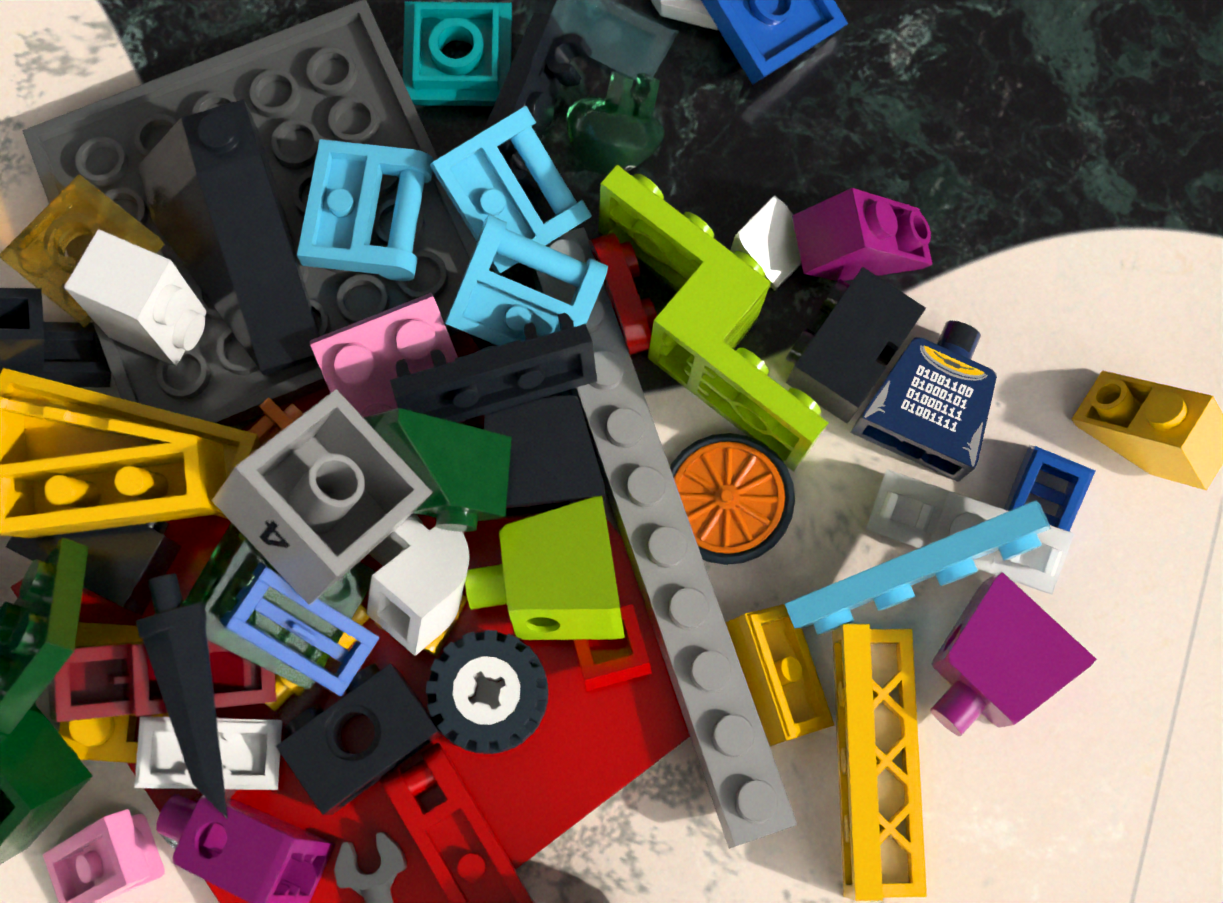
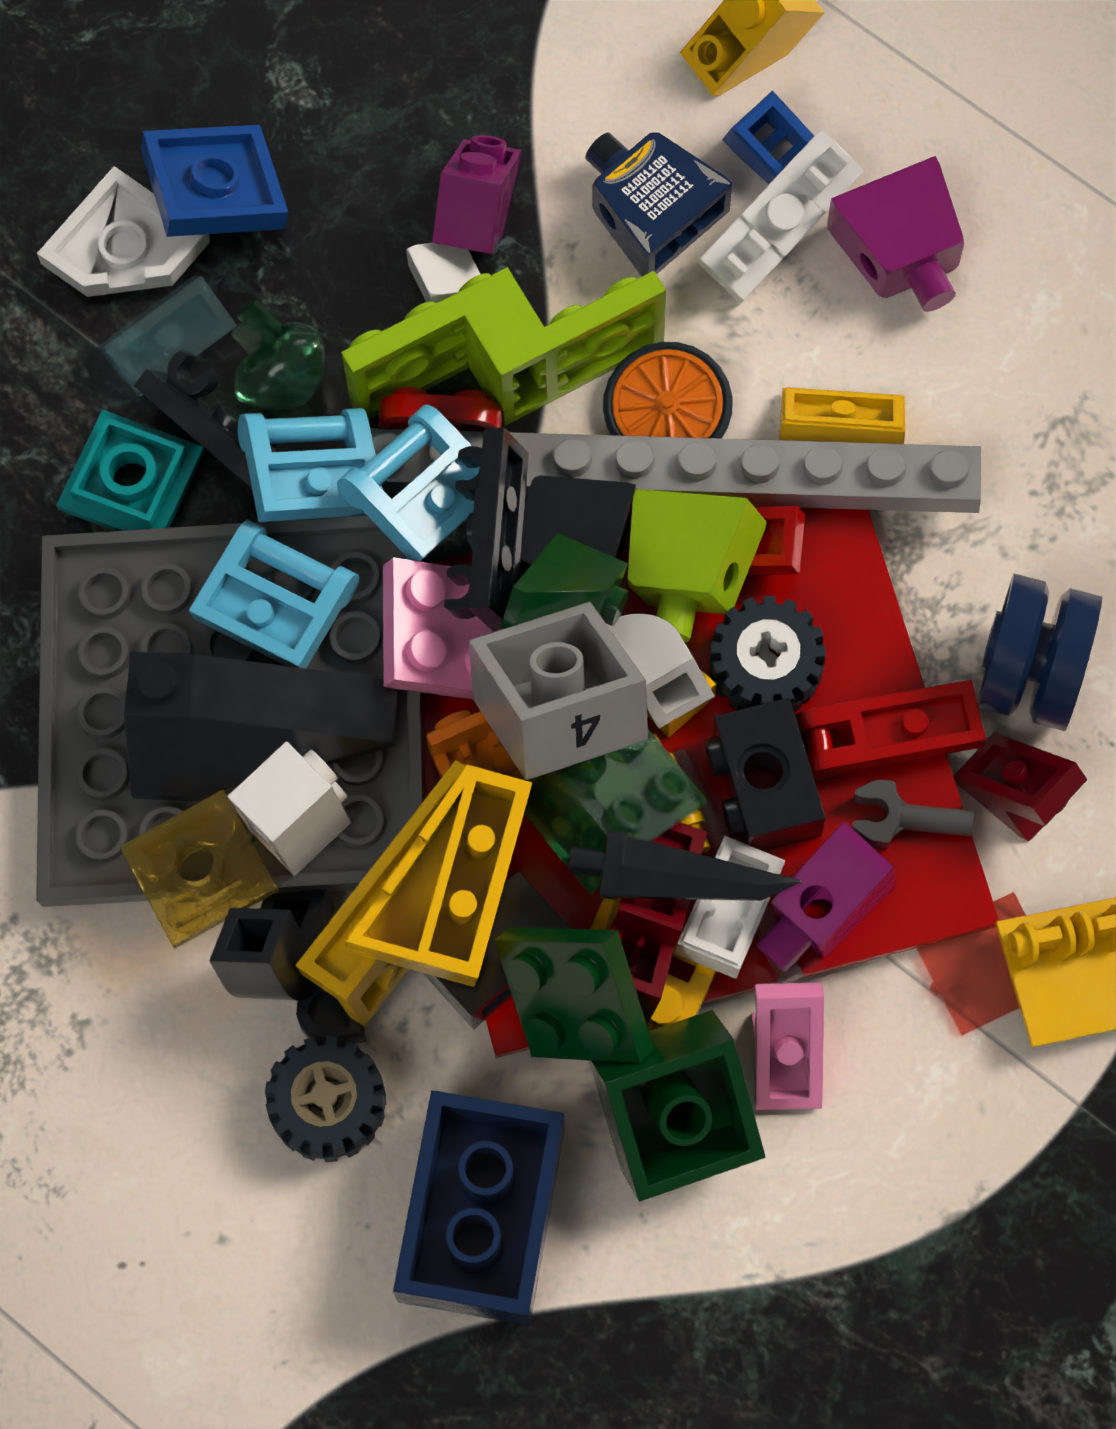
camera: 60 degrees left, 5 degrees down
(252, 599) = (626, 790): tile -> none
(859, 769) = (946, 381): yellow fence -> none
(862, 325) = (568, 240): black brick -> none
(946, 559) = (805, 232): medium azure plate -> none

